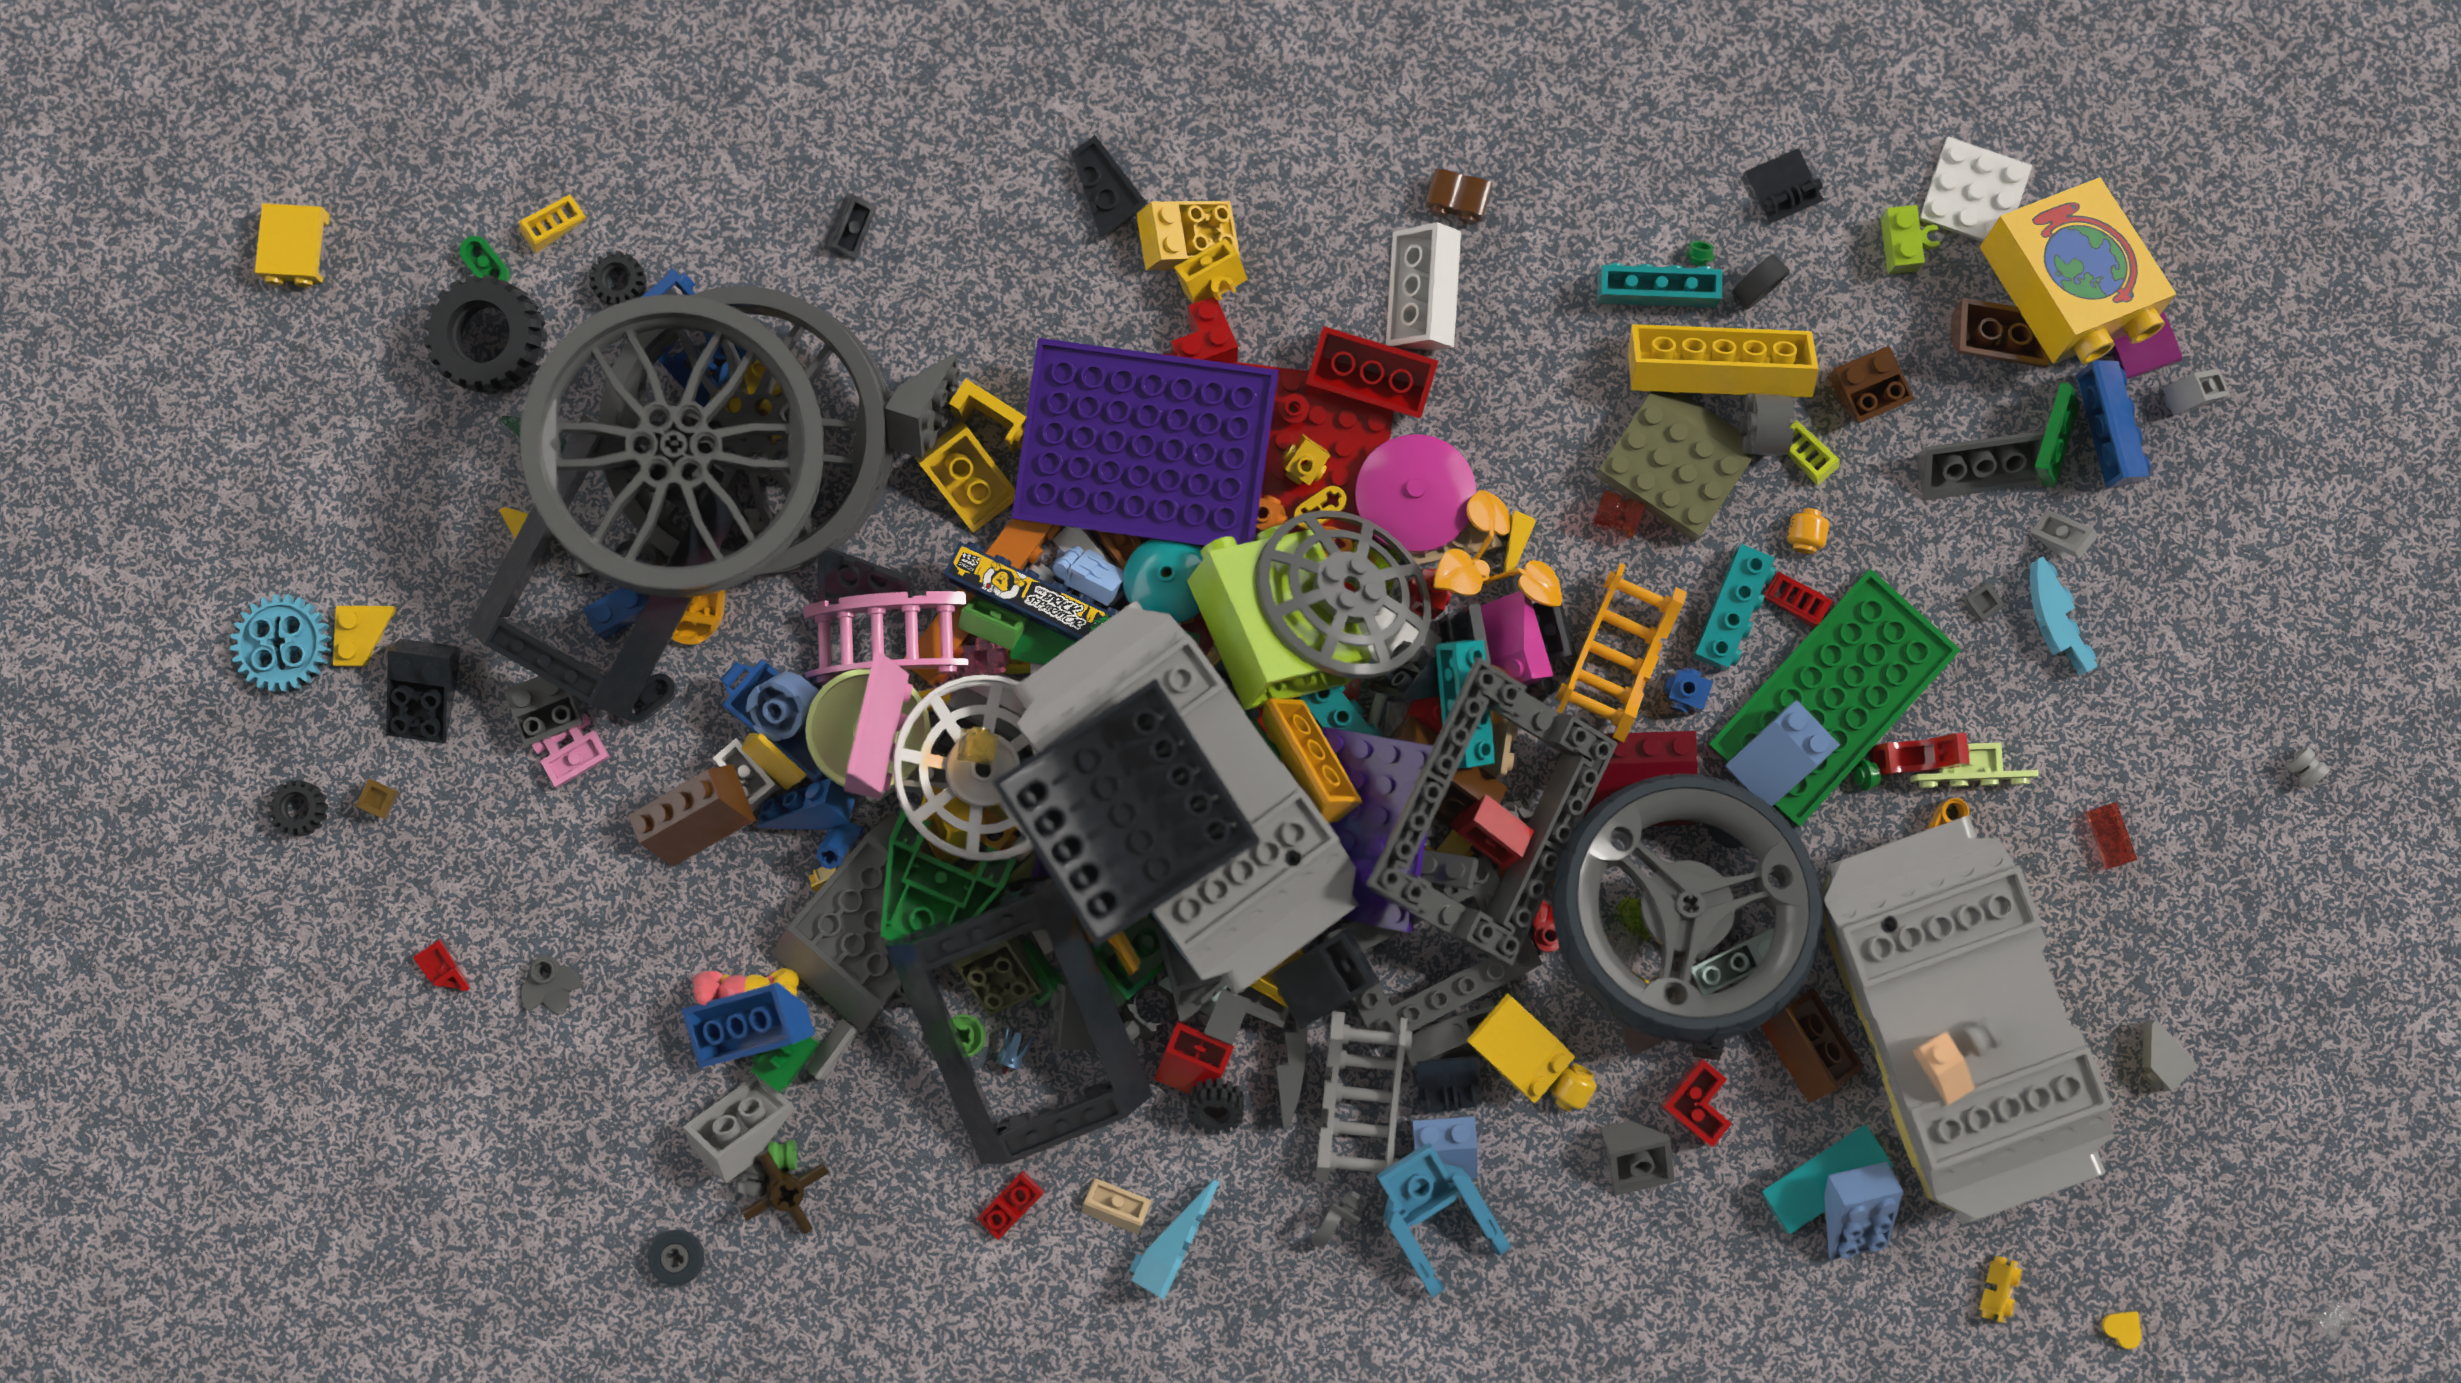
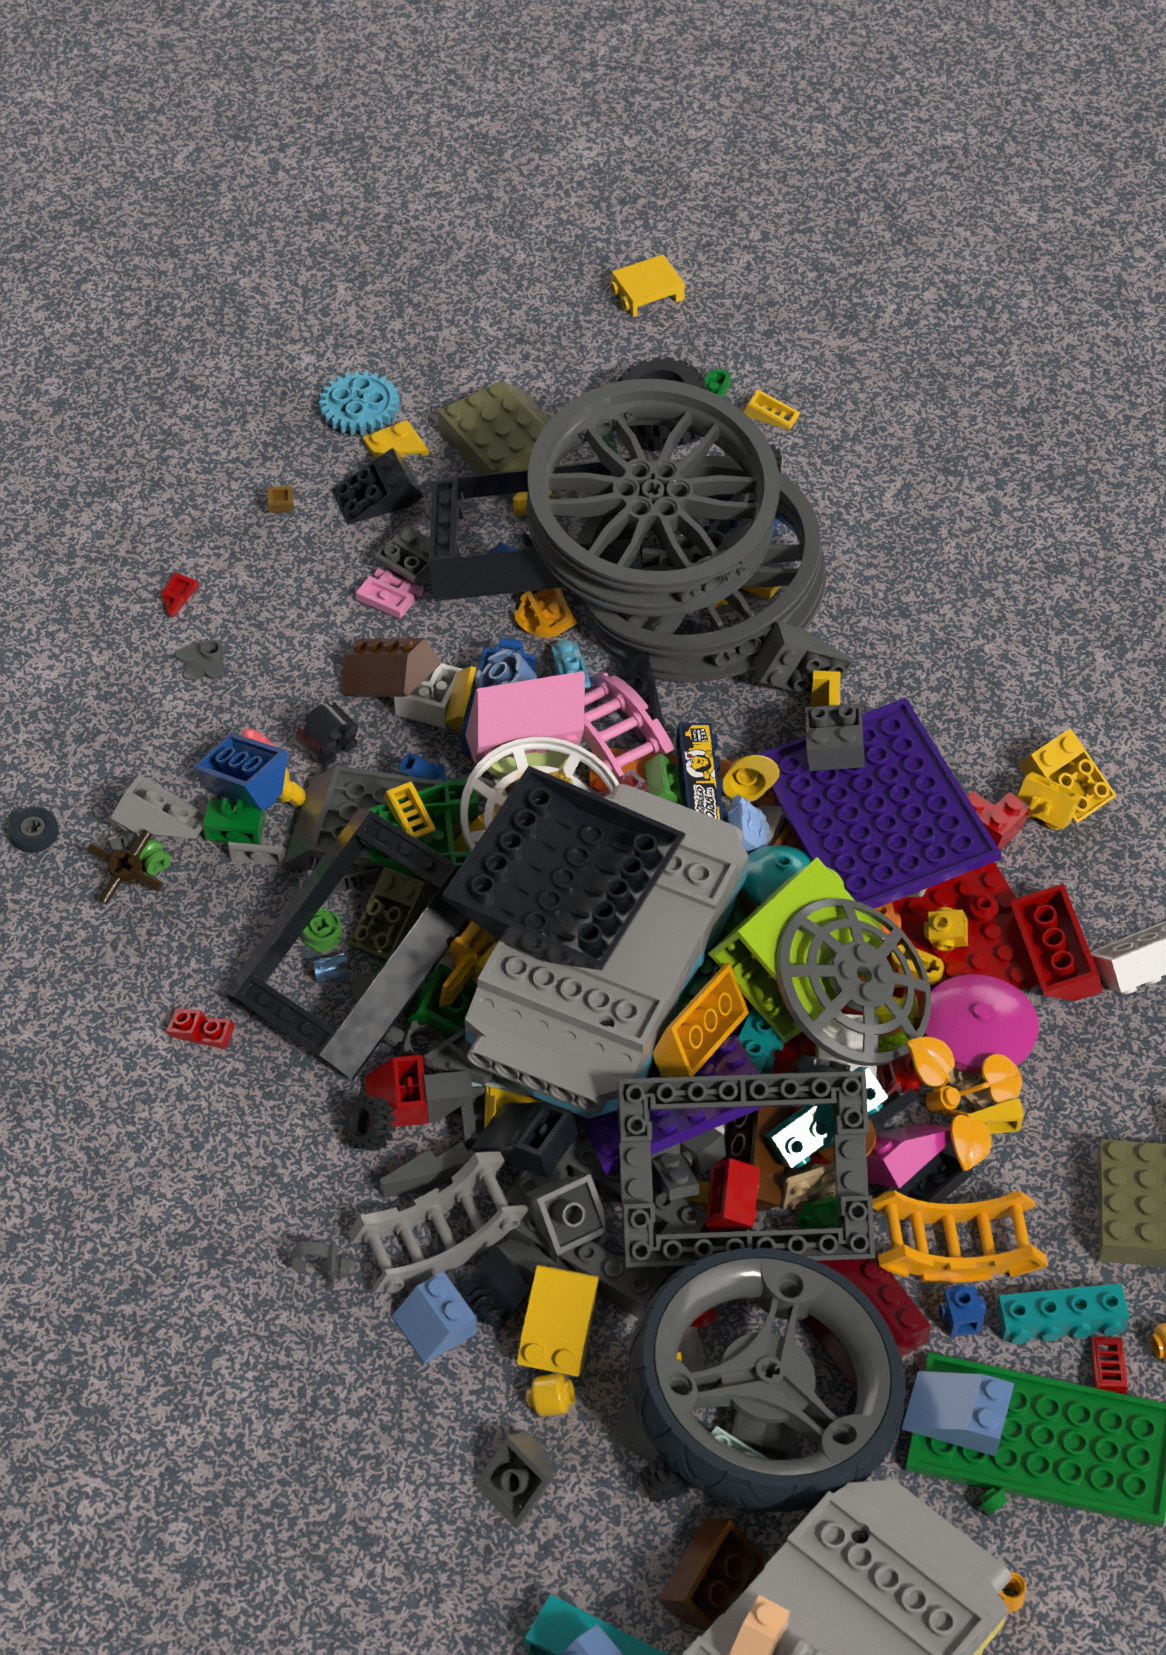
camera: 60 degrees right, 30 degrees down
(280, 804) = (245, 473): black tyre -> none
(418, 514) = (494, 428): none -> olive slope
(650, 700) = (460, 619): black plate -> none
(731, 911) = (327, 733): none -> black brick
(789, 629) = (568, 659): none -> medium azure slope
(809, 808) = (440, 742): blue slope -> none
(850, 226) = (904, 575): black slope -> none
(883, 896) = (408, 790): none -> yellow slope
(967, 476) = (768, 720): yellow slope -> none
(1037, 540) = (750, 777): none -> yellow piece
(1052, 436) = (835, 737): none -> dark grey slope
(1106, 187) = (1059, 710): black wing -> none
(1116, 1206) = (241, 1102): tan slope -> none
(1164, 1256) = (225, 1152): medium azure wedge -> none
(1420, 1188) = (386, 1300): dark azure plate -> none
(1427, 985) = (567, 1212): none -> dark grey slope
(1529, 756) = (818, 1214): none -> green bracket
(1612, 505) = (1075, 1181): clear red wheel -> none
(1690, 1106) = (599, 1493): red brick -> none
(1921, 755) = (1038, 1531): red arch -> none
(1984, 766) = (1066, 1586): yellowish green bracket -> none

